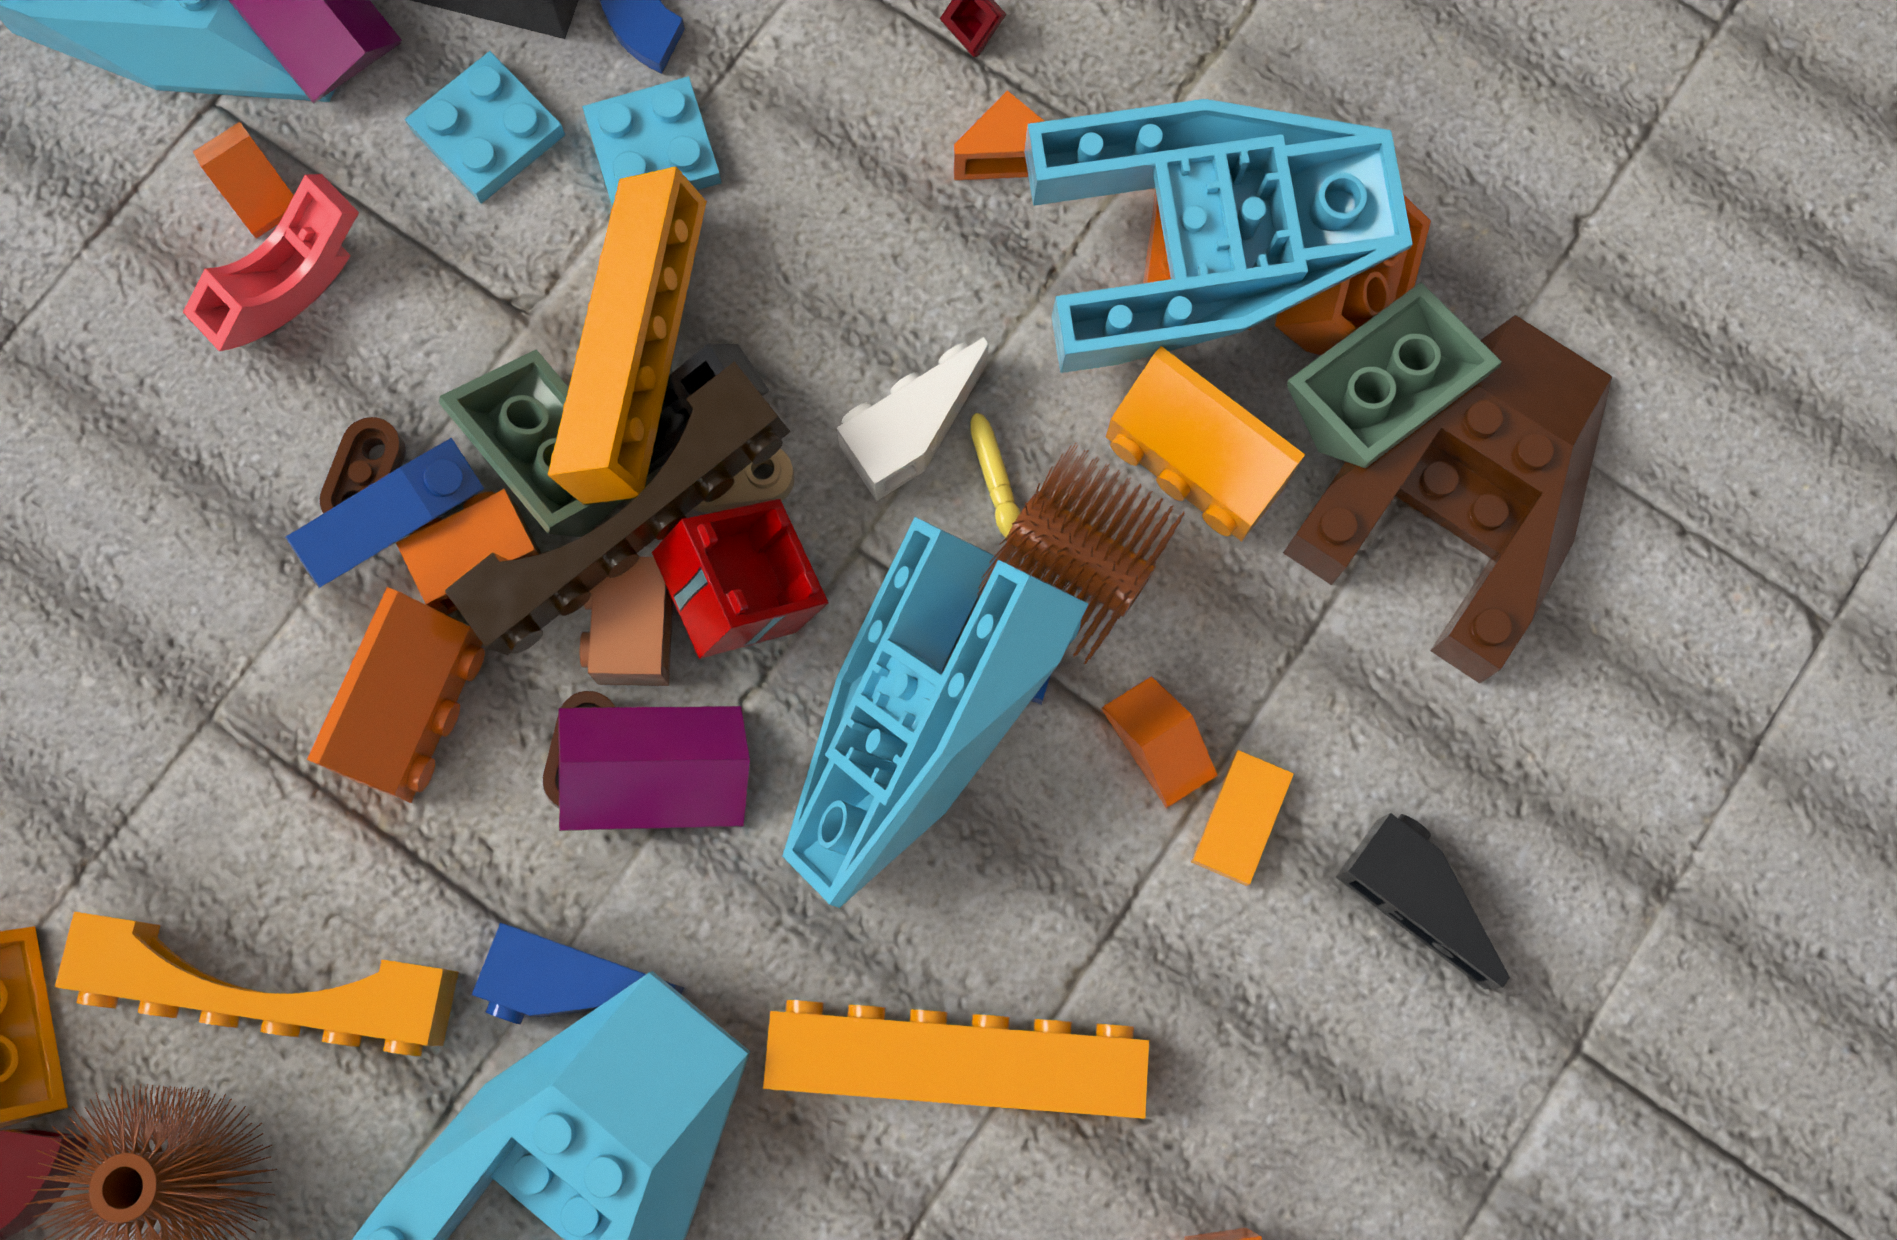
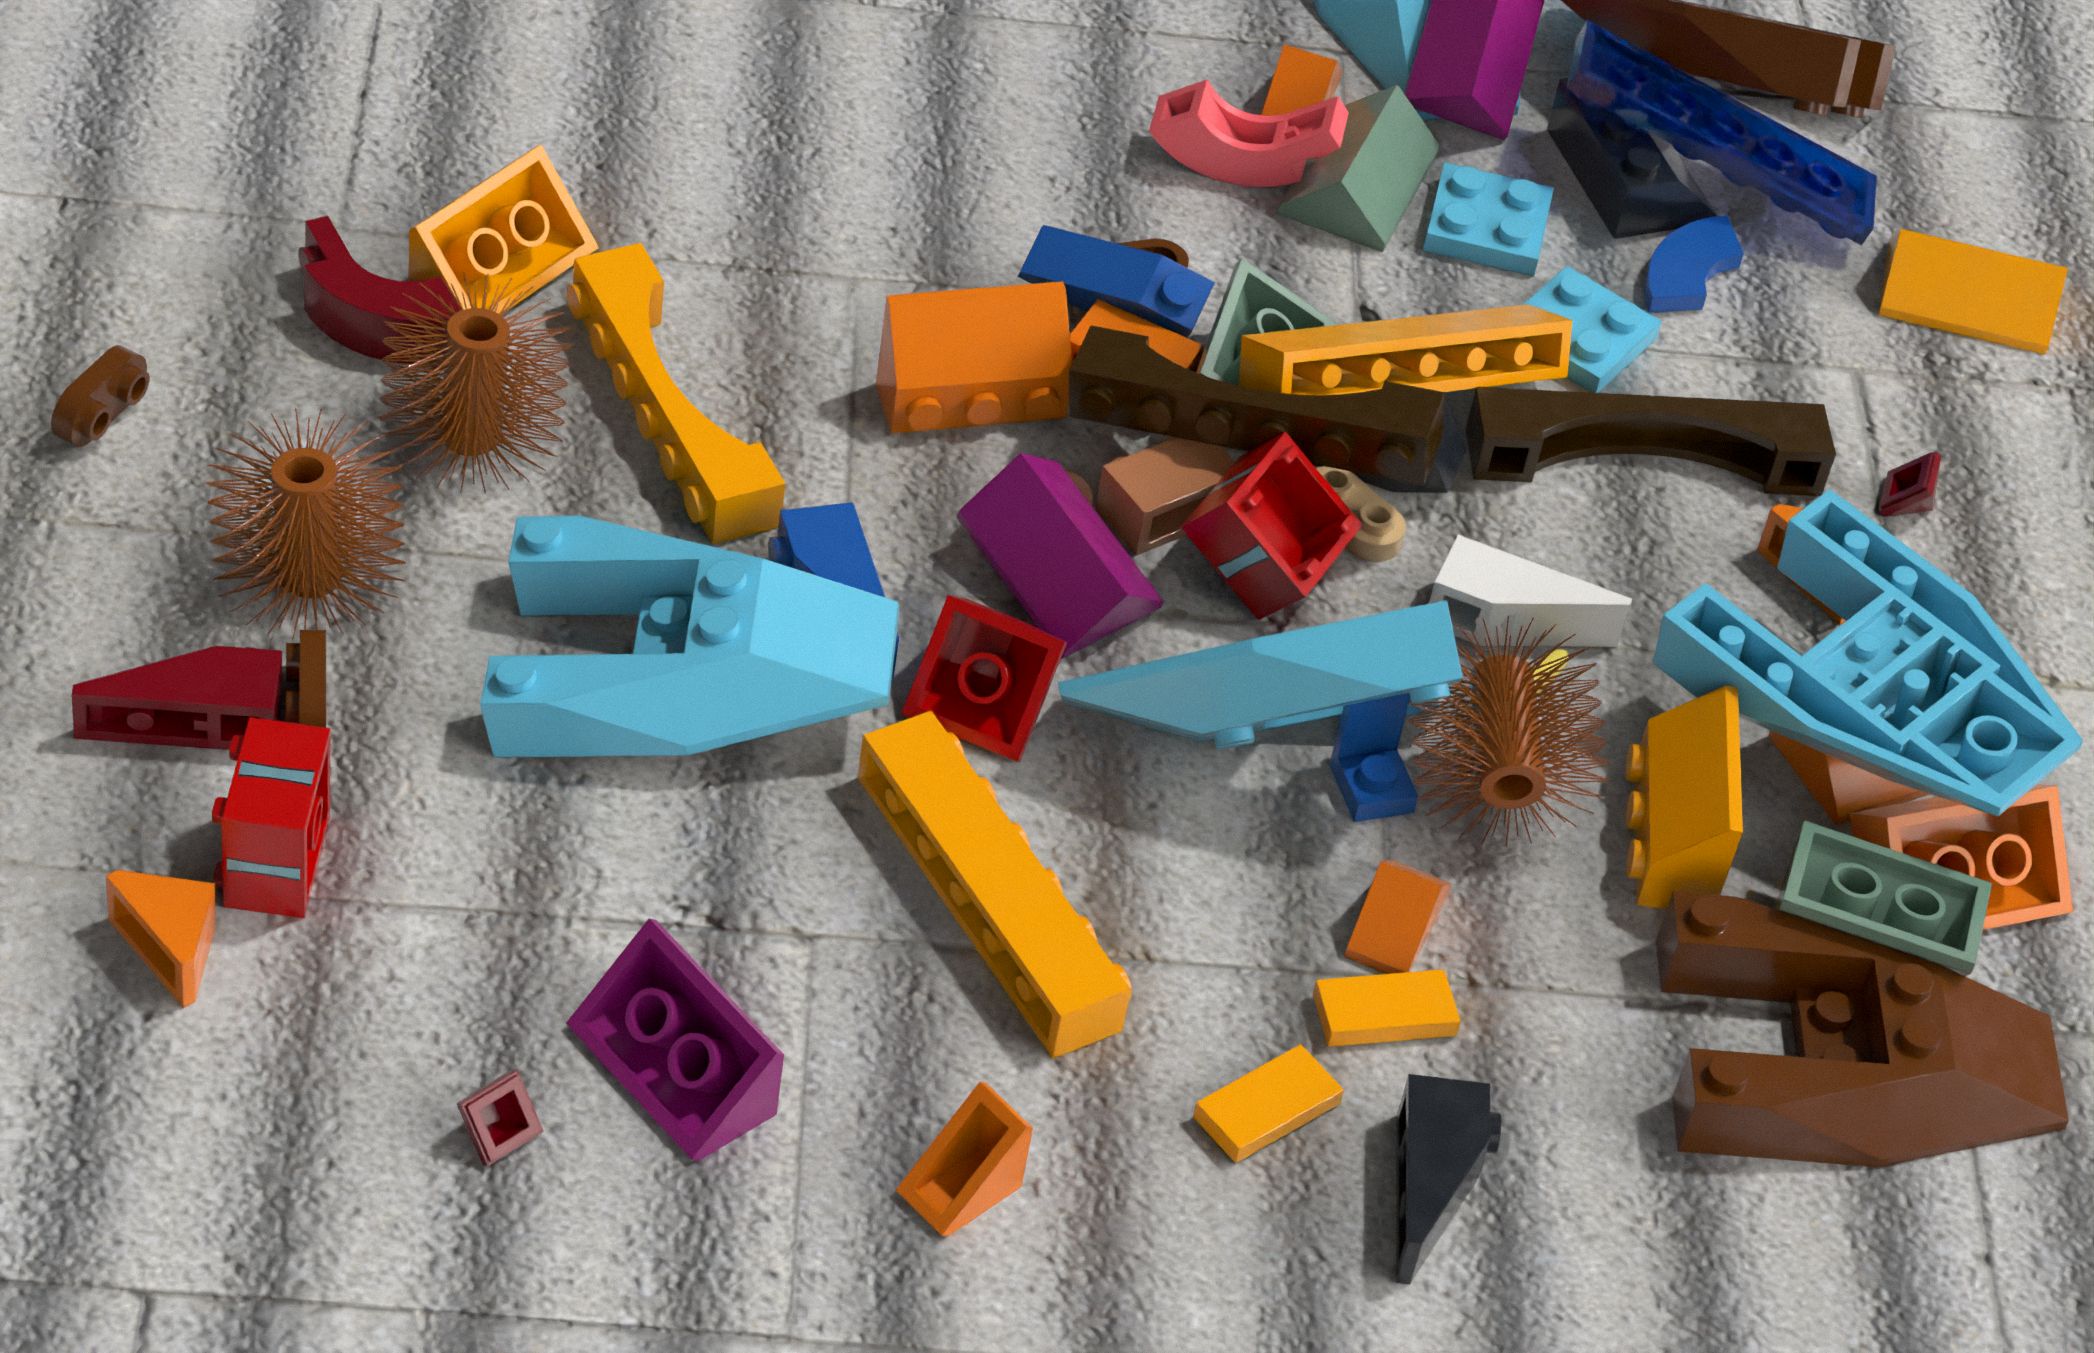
camera: 50 degrees right, 30 degrees down
(368, 164) = (1371, 178): none -> sand green slope
(741, 921) = (985, 676): none -> red slope
(876, 88) = (1769, 442): none -> dark brown arch
(1281, 978) = (1268, 1103): none -> light orange tile

